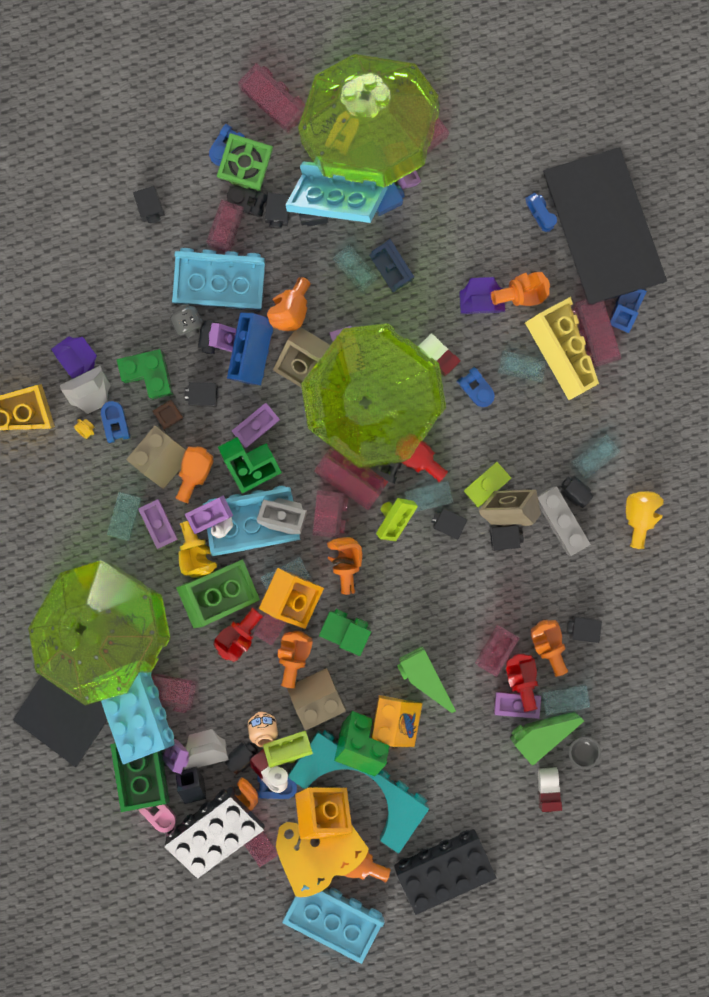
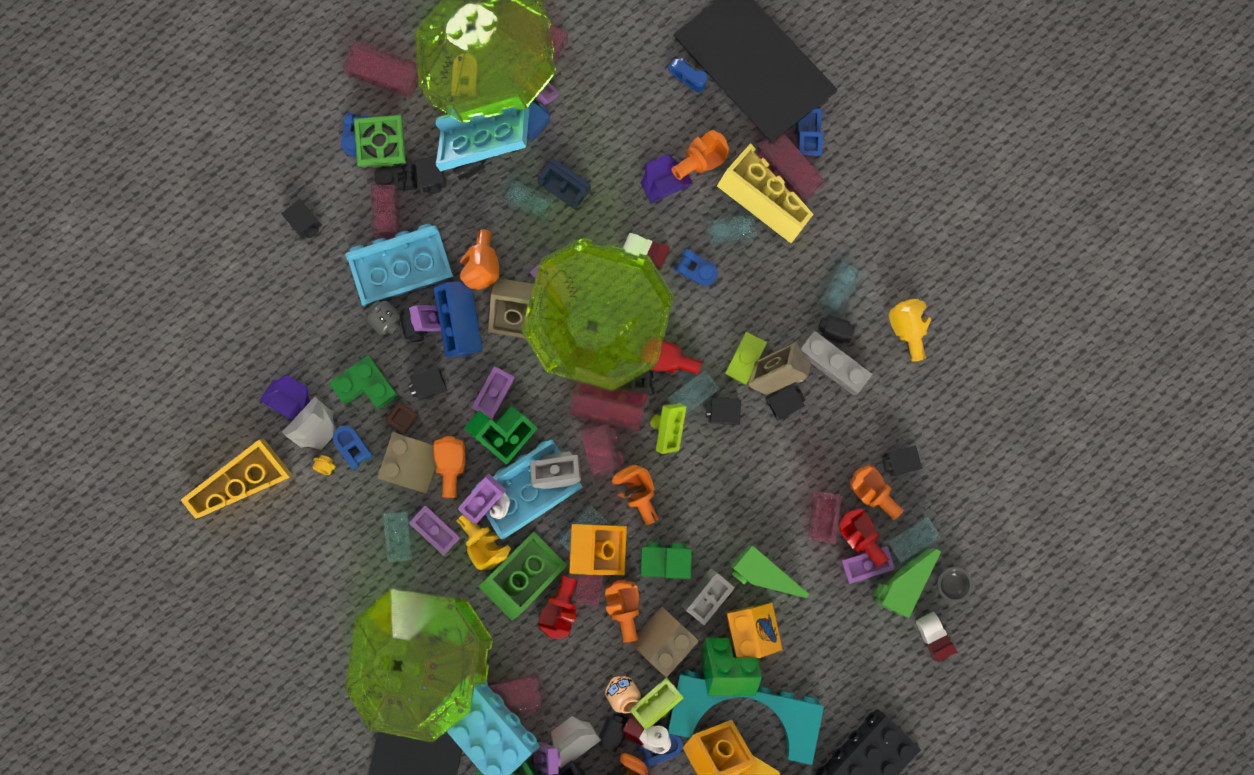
camera: 25 degrees left, 5 degrees down
(368, 676) = (707, 596): none -> light grey hinge

